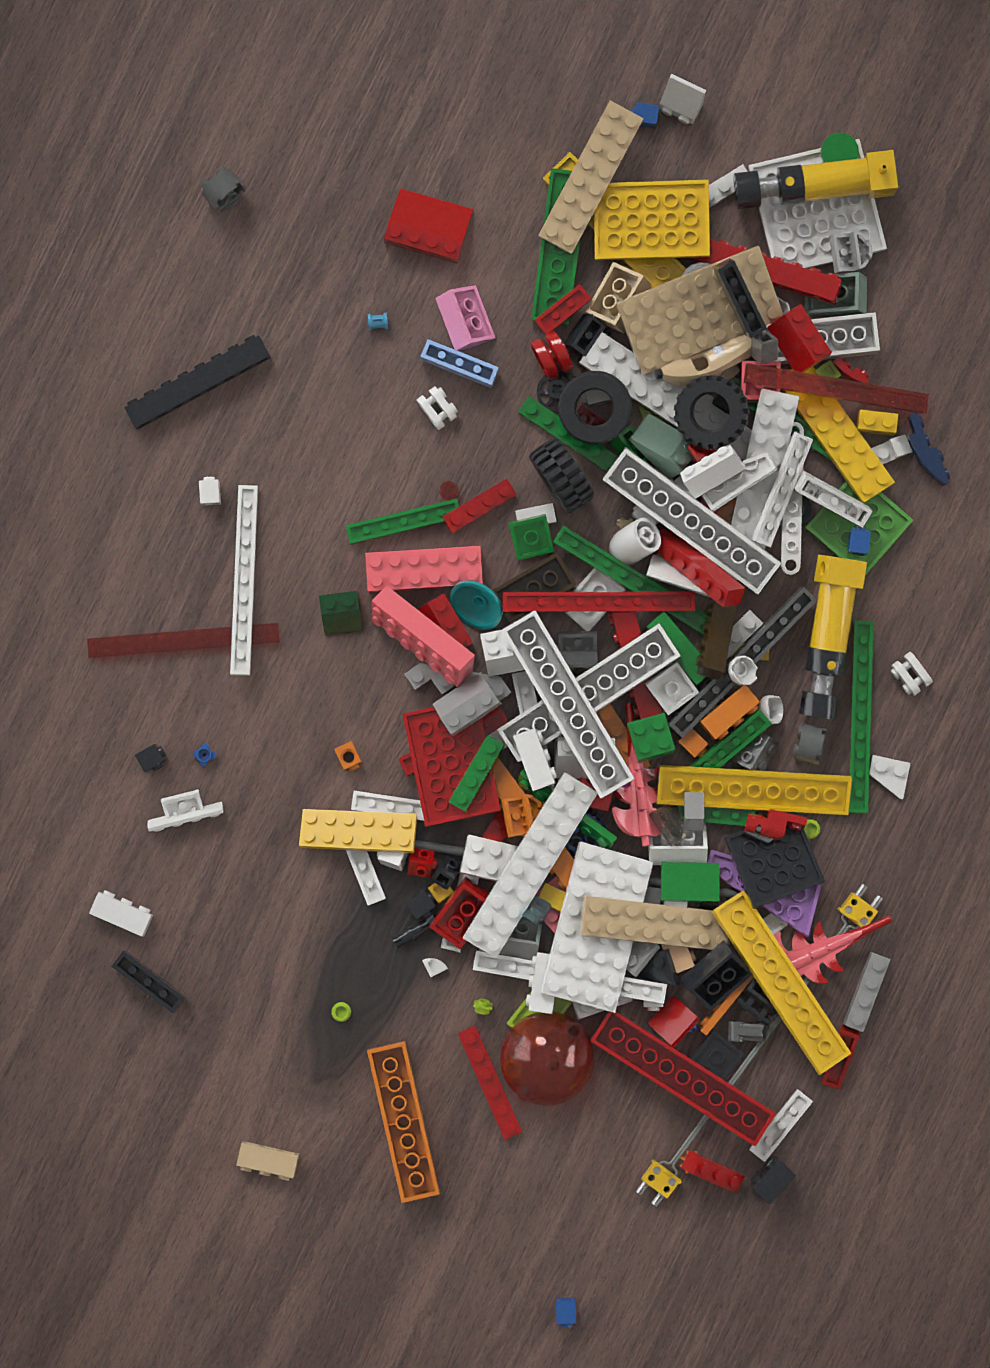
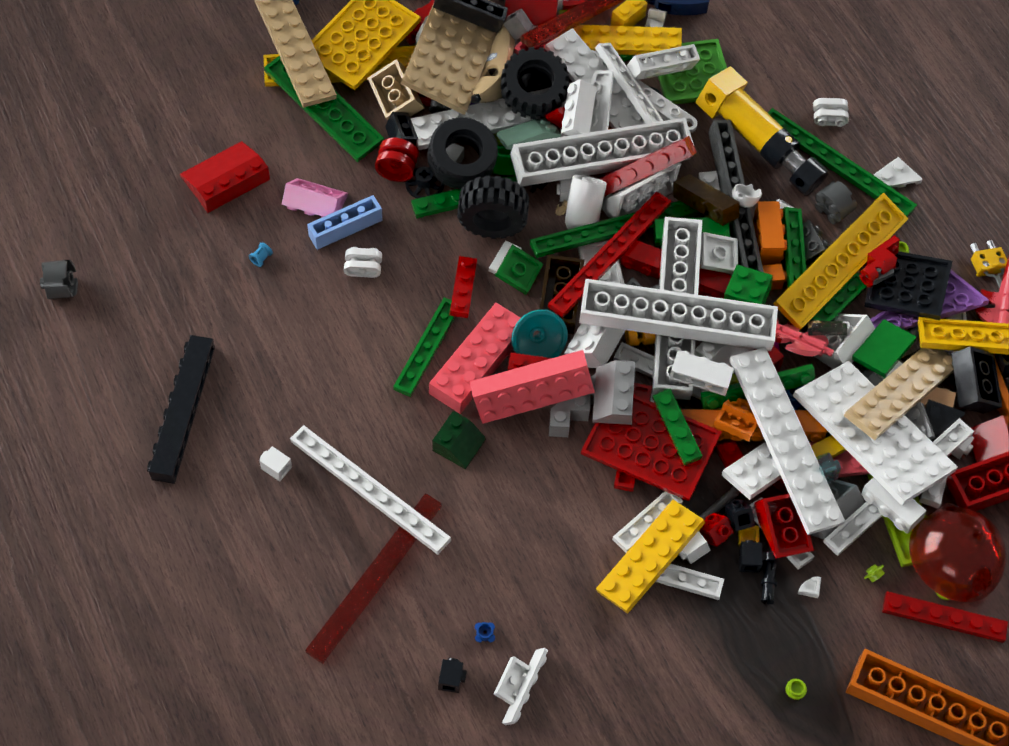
camera: 60 degrees left, 25 degrees down
(342, 750) = (580, 513): orange brick -> none
(448, 490) = (432, 300): clear red plate -> none
(563, 309) = (370, 129): red plate -> none
(693, 810) = (827, 305): light grey slope -> none
(858, 541) = (704, 71): blue brick -> none

